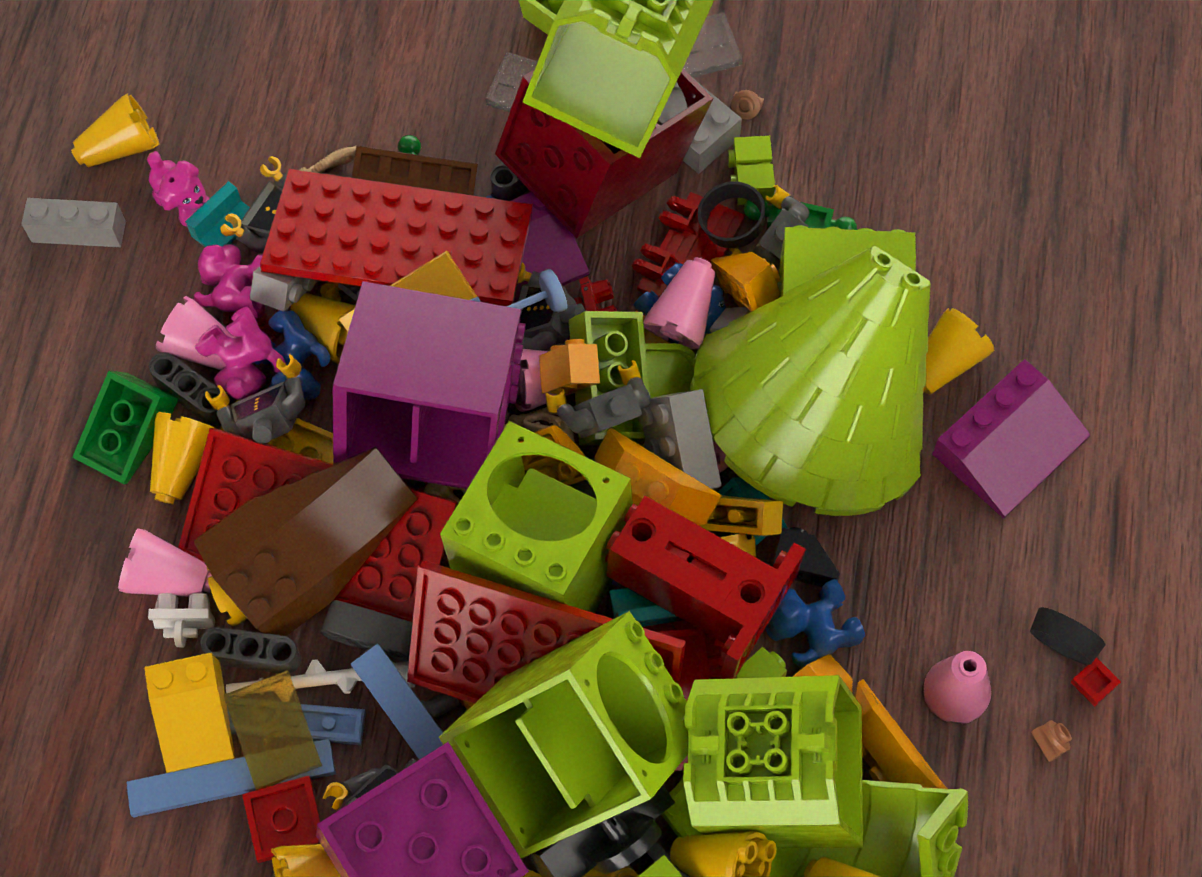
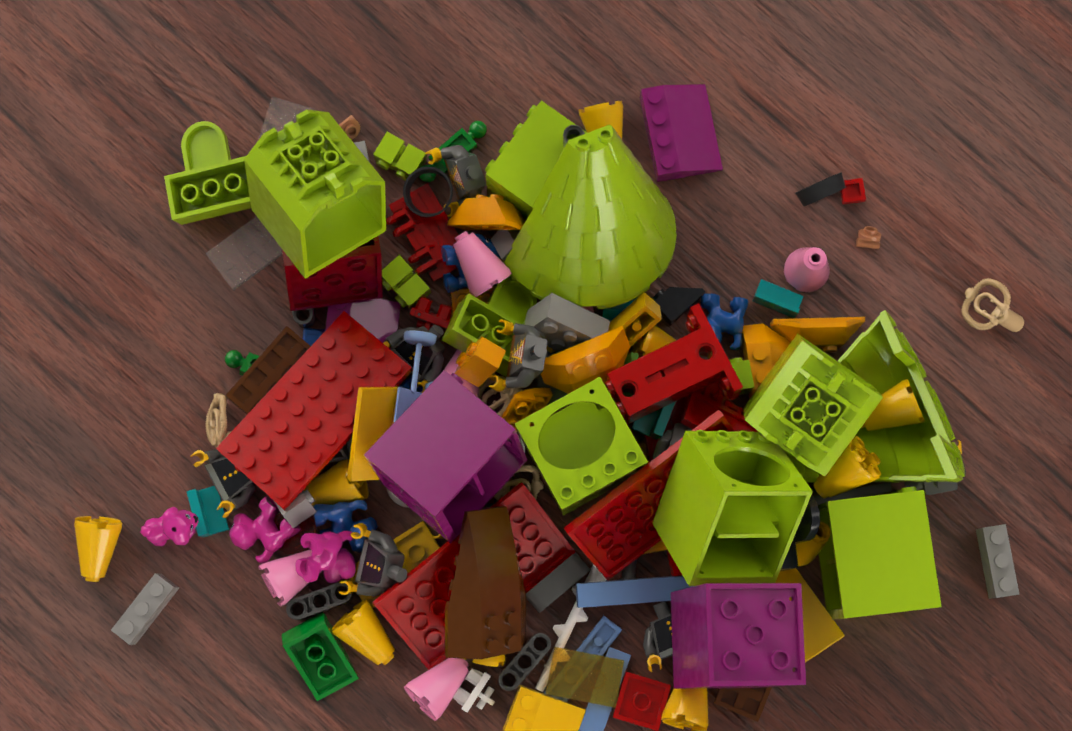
camera: 60 degrees left, 15 degrees up
(614, 254) = (404, 283): none -> lime piece
(895, 676) = (777, 298): none -> teal panel

